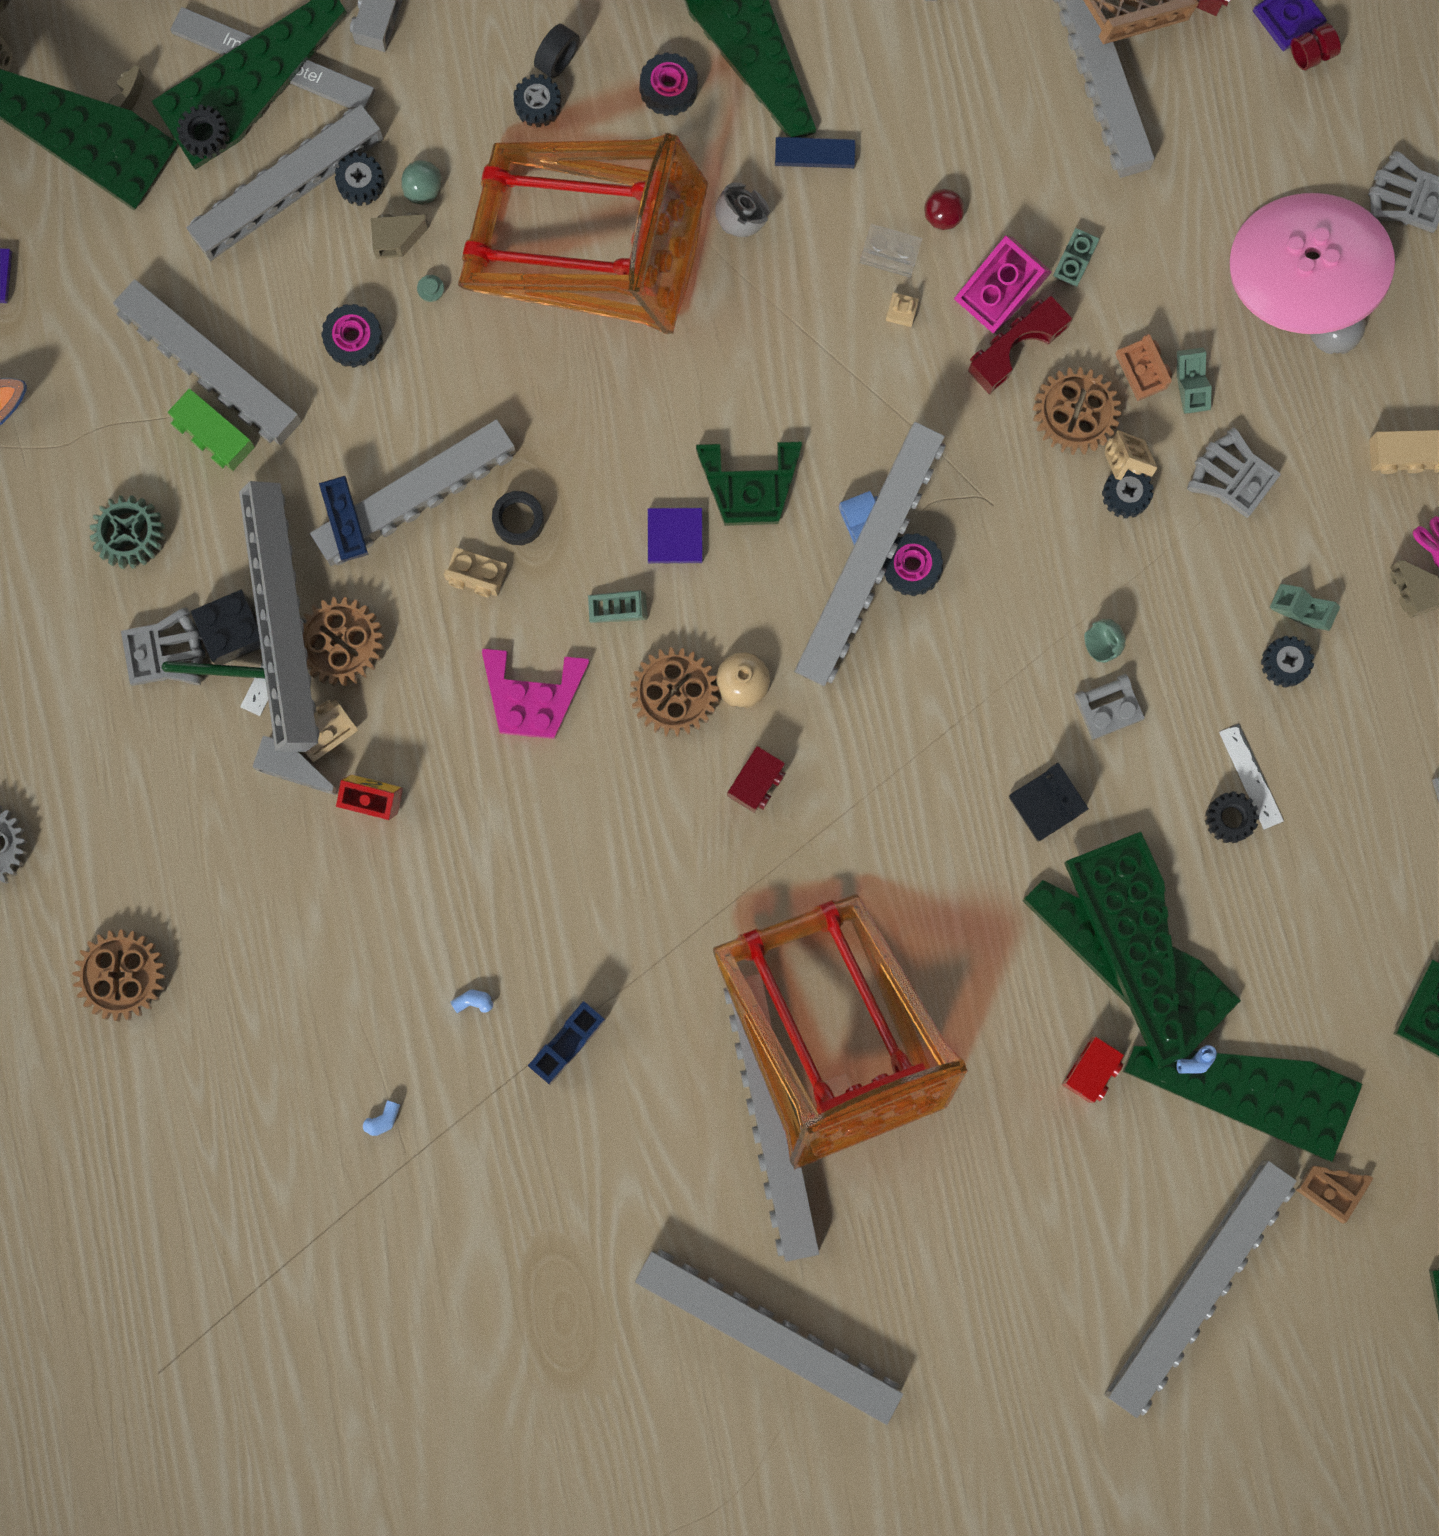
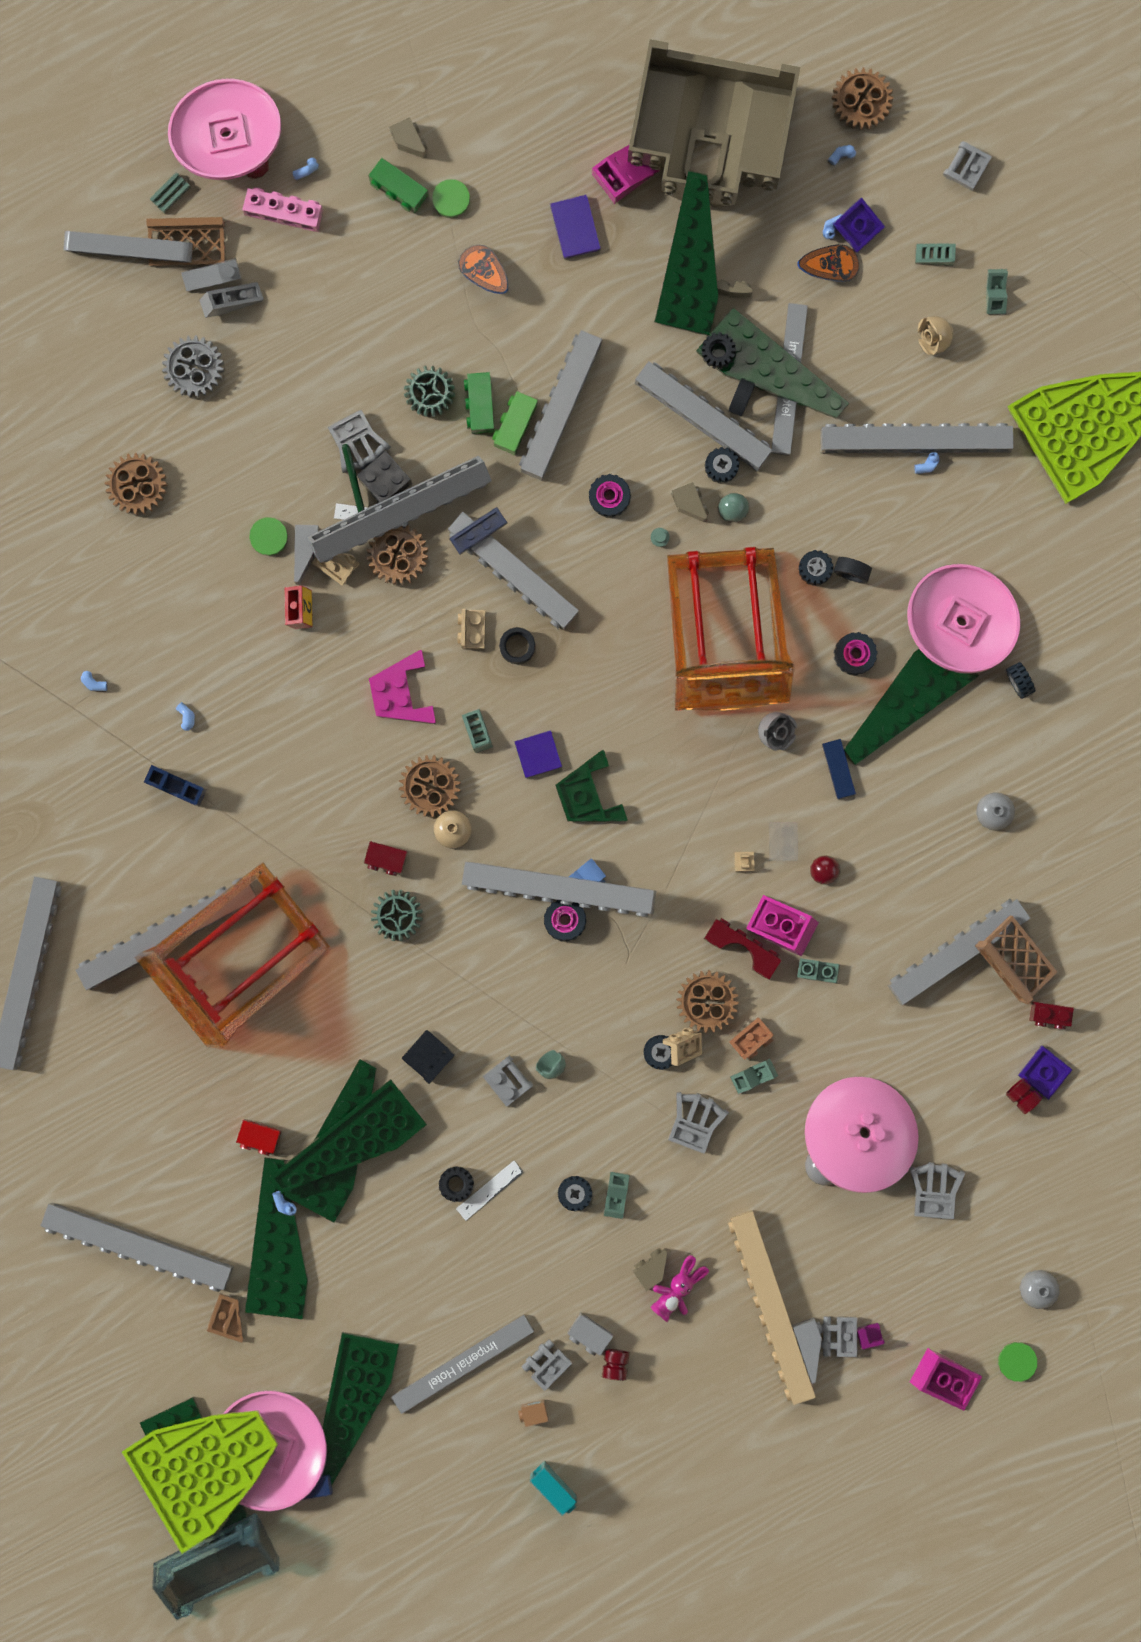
camera: 80 degrees right, 5 degrees up
(166, 469) = (479, 403): none -> green brick
(255, 812) = (268, 536): none -> bright green tile
(276, 122) = (741, 397): none -> black tyre
(827, 788) = (380, 918): none -> sand green gear

